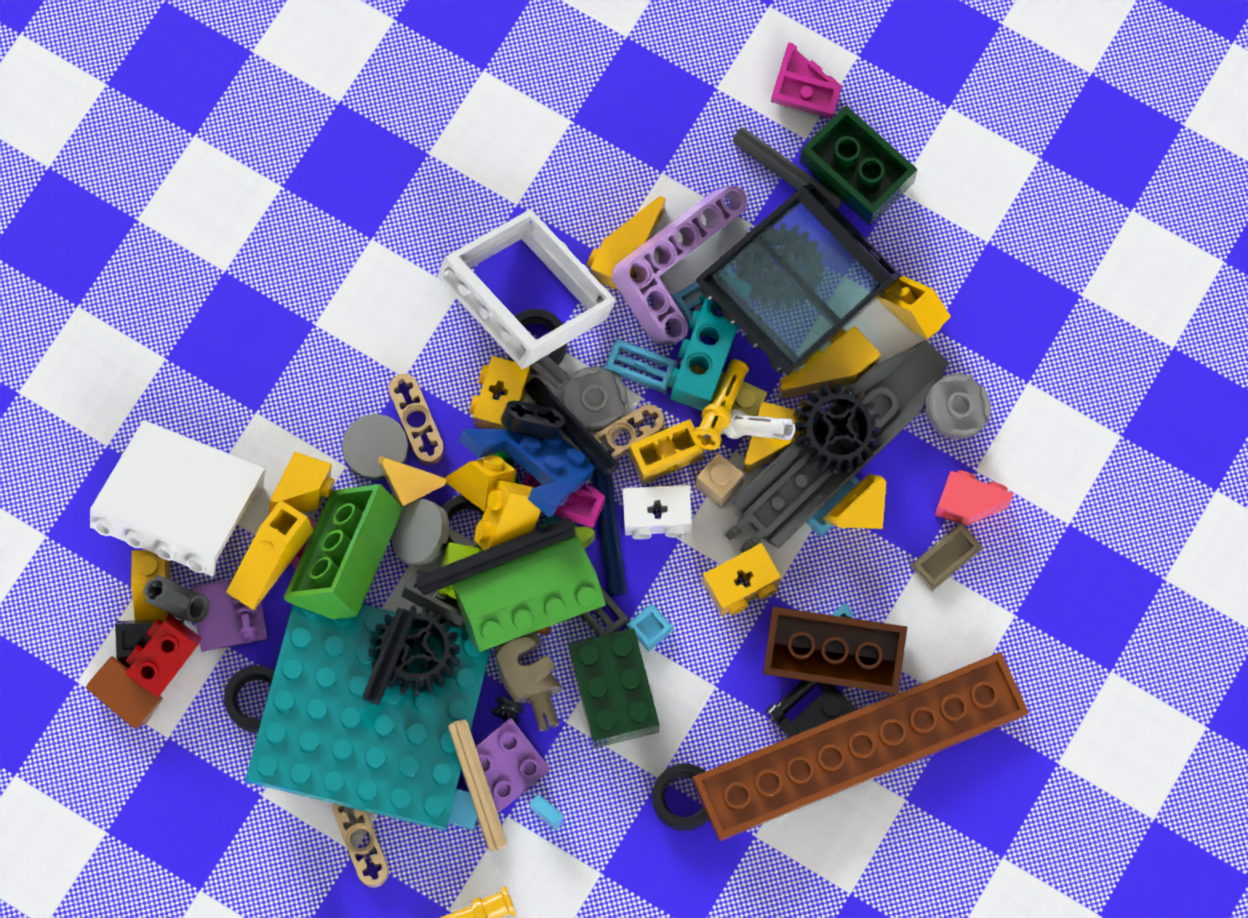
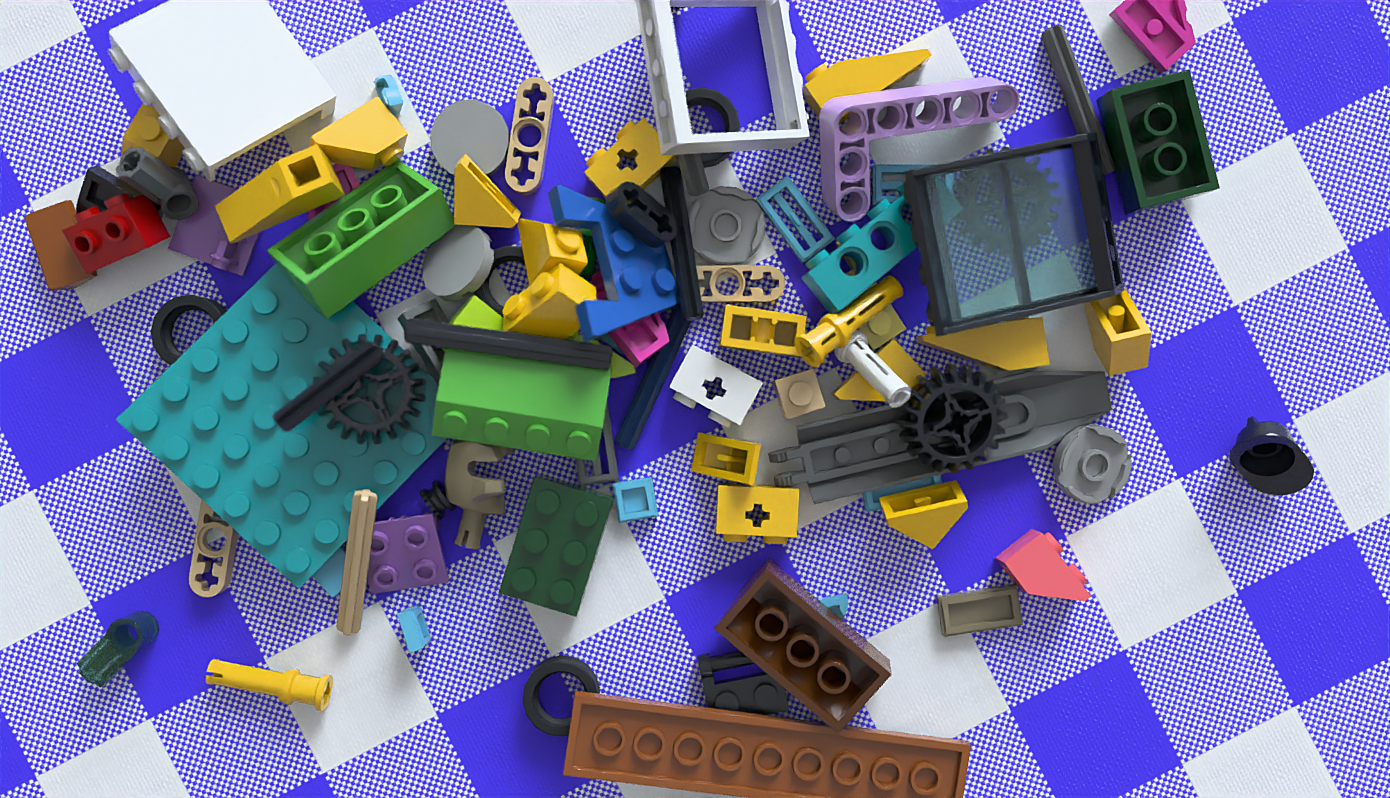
camera: 35 degrees right, 15 degrees up
(298, 444) = (389, 93): none -> medium azure tile
(697, 555) = (726, 458): none -> yellow slope
(1078, 329) = (1271, 458): none -> black piece

